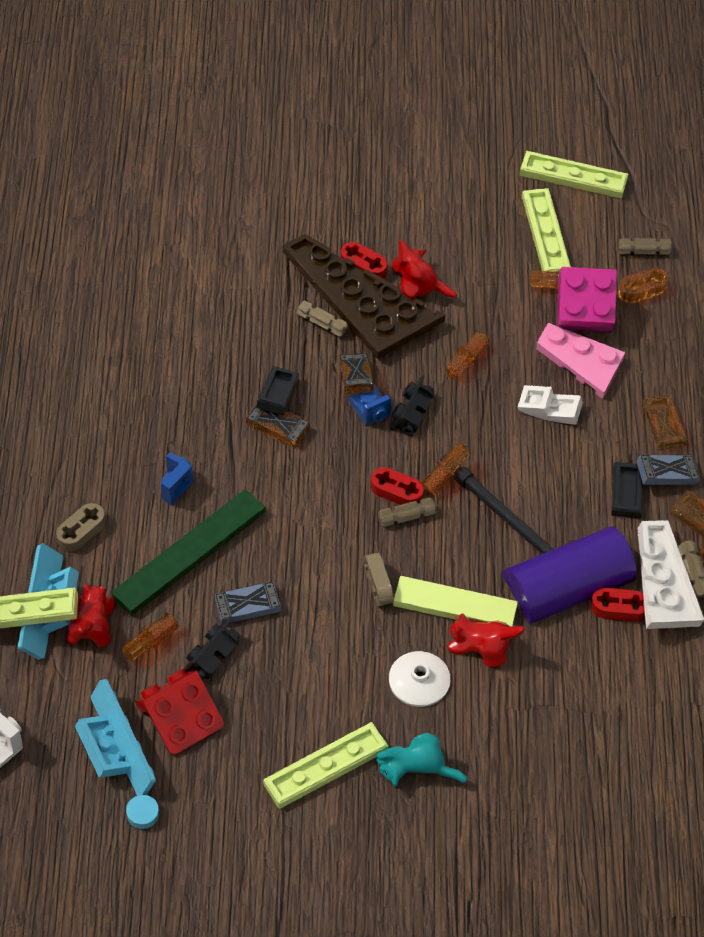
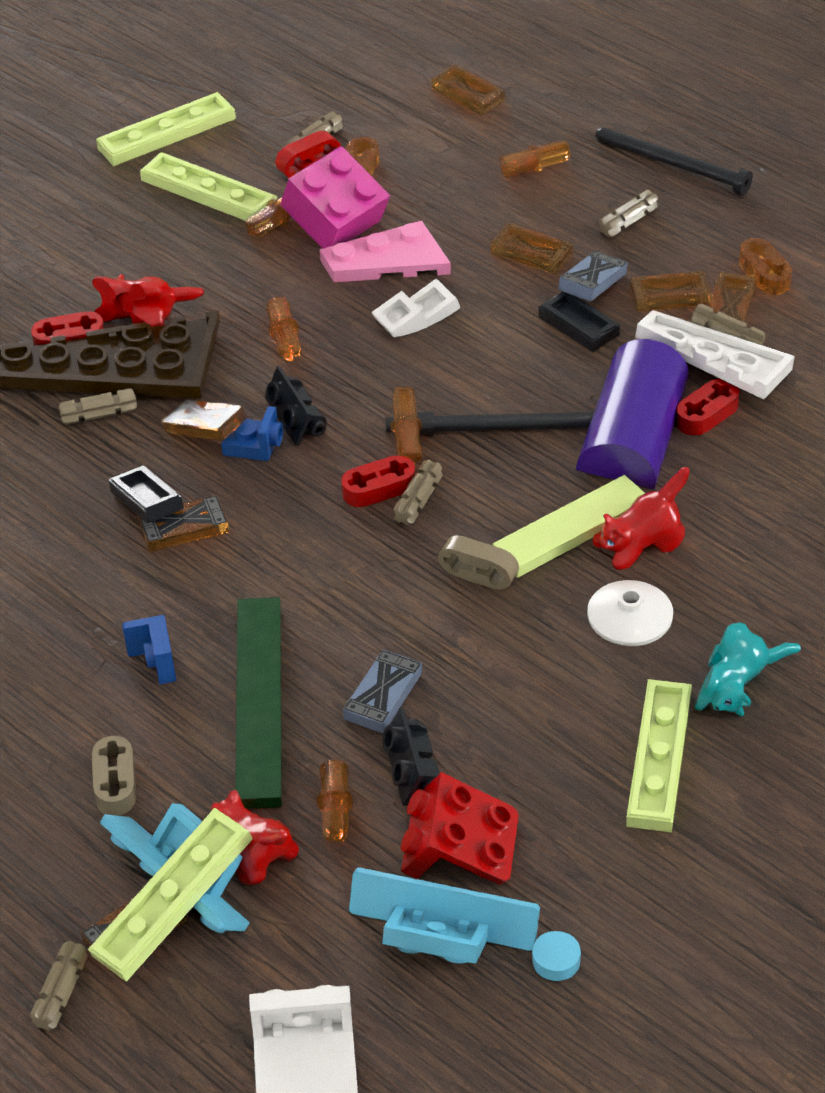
camera: 45 degrees left, 10 degrees down
(620, 257) = (305, 152): none -> red beam

